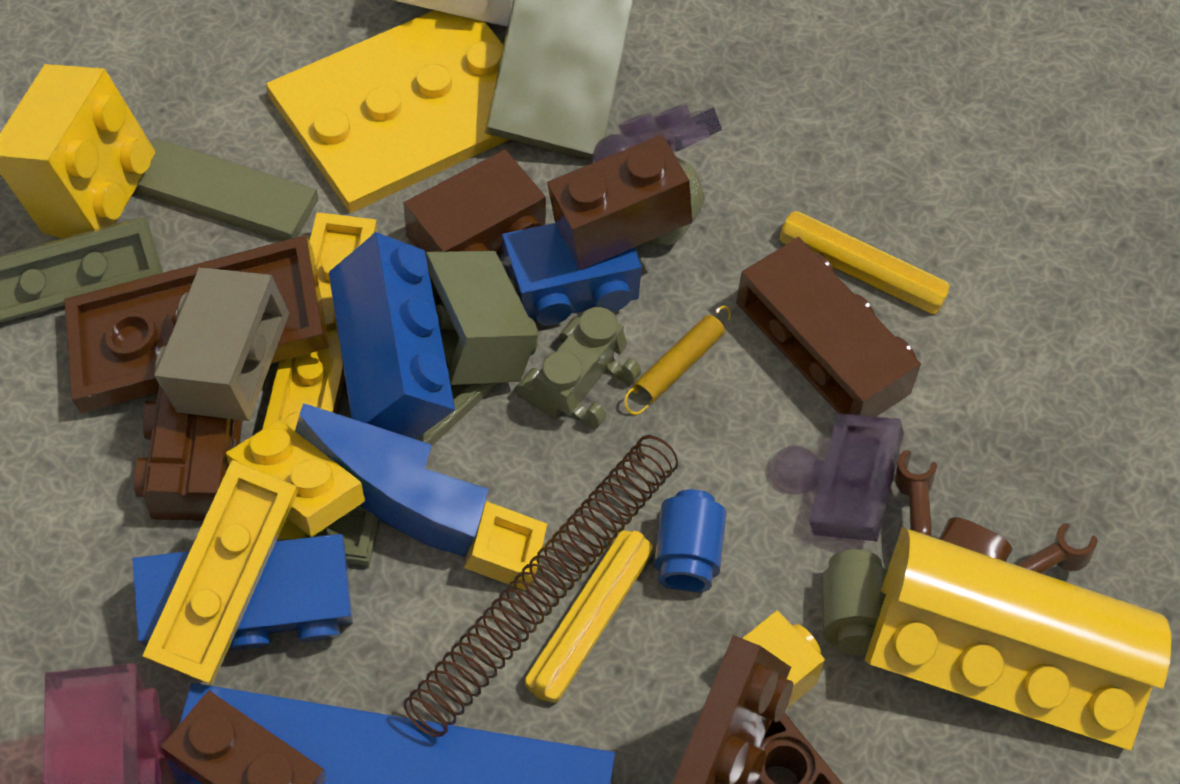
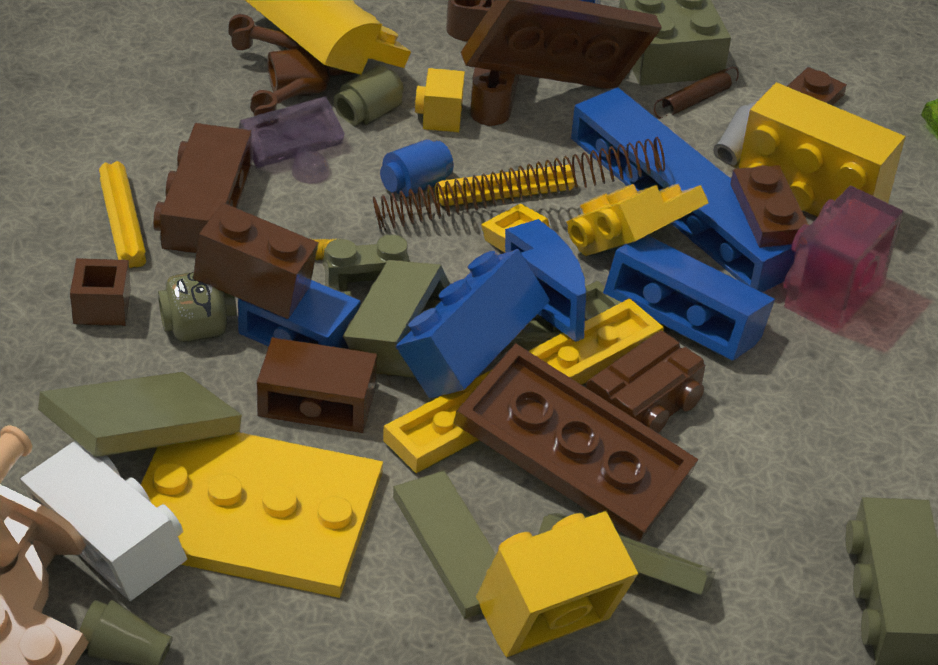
camera: 135 degrees left, 15 degrees down
(221, 573) = (705, 264): yellow plate -> none
(222, 344) = (588, 364): dark tan brick -> none
(322, 484) = (610, 300): yellow plate -> none
(381, 627) = (630, 215): none -> yellow plate
(676, 125) = (154, 319): clear purple plate -> none
(749, 153) = (100, 292): none -> reddish brown plate

